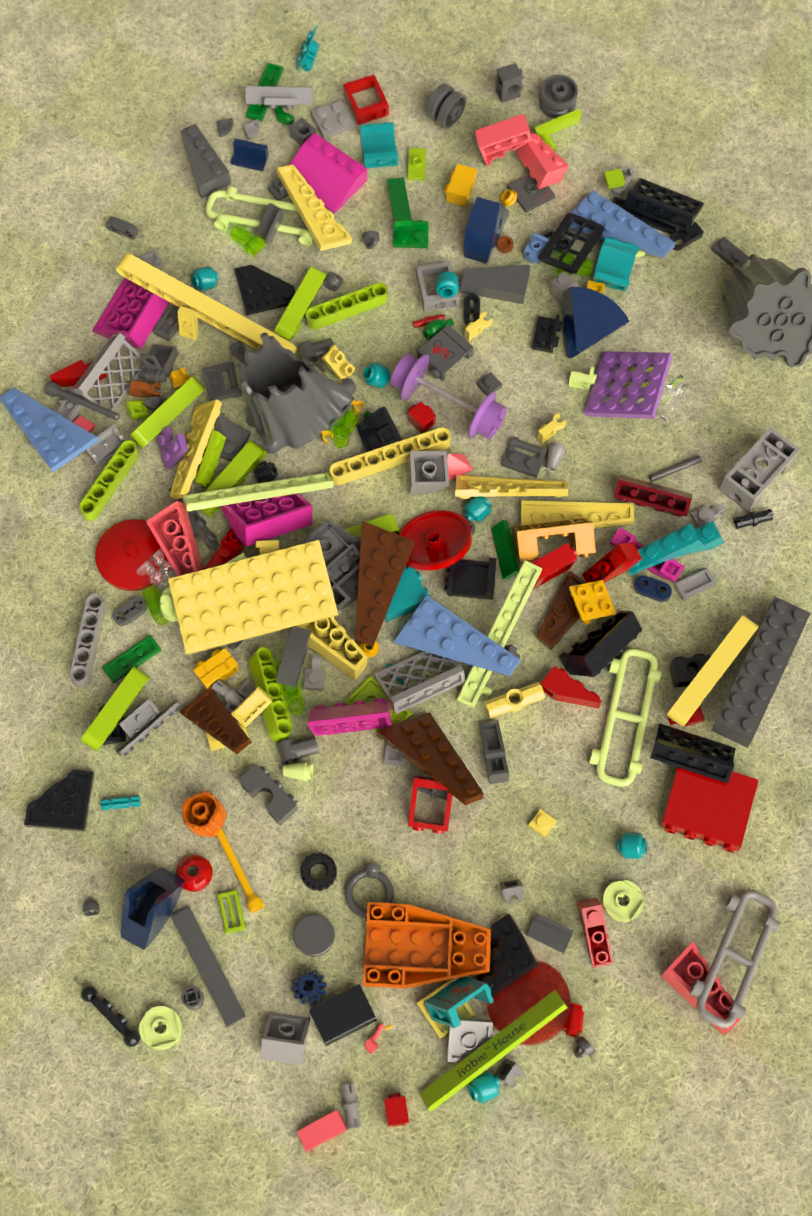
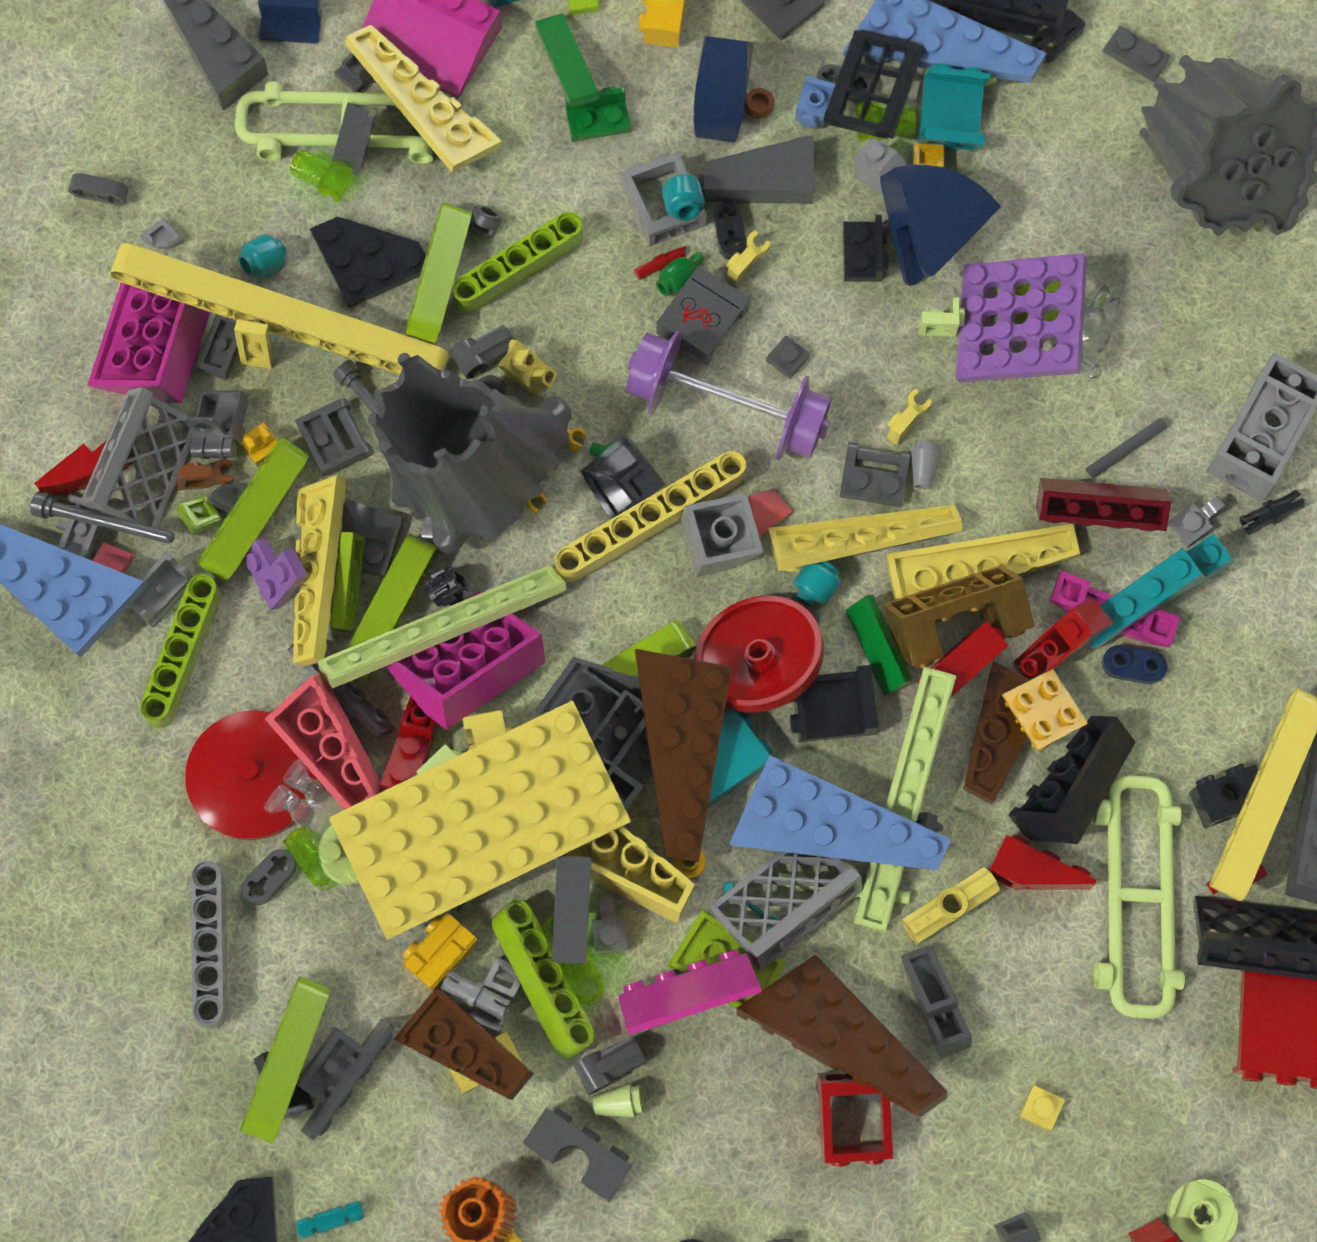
camera: 15 degrees left, 5 degrees up
(132, 657) = (291, 961): green tile -> none
(251, 706) = (518, 1010): light yellow plate -> none
(345, 428) = (564, 482): clear neon green piece -> none
(370, 237) = (529, 131): dark grey tile -> none
(376, 375) = (596, 377): teal head -> none
(393, 757) = (771, 1045): light grey tile -> none
(421, 417) = (687, 437): red brick -> none
(508, 197) = (748, 19): yellow plate -> none
(632, 845) = (1197, 1117): teal head -> none
(695, 584) = (1201, 643): light grey tile -> none

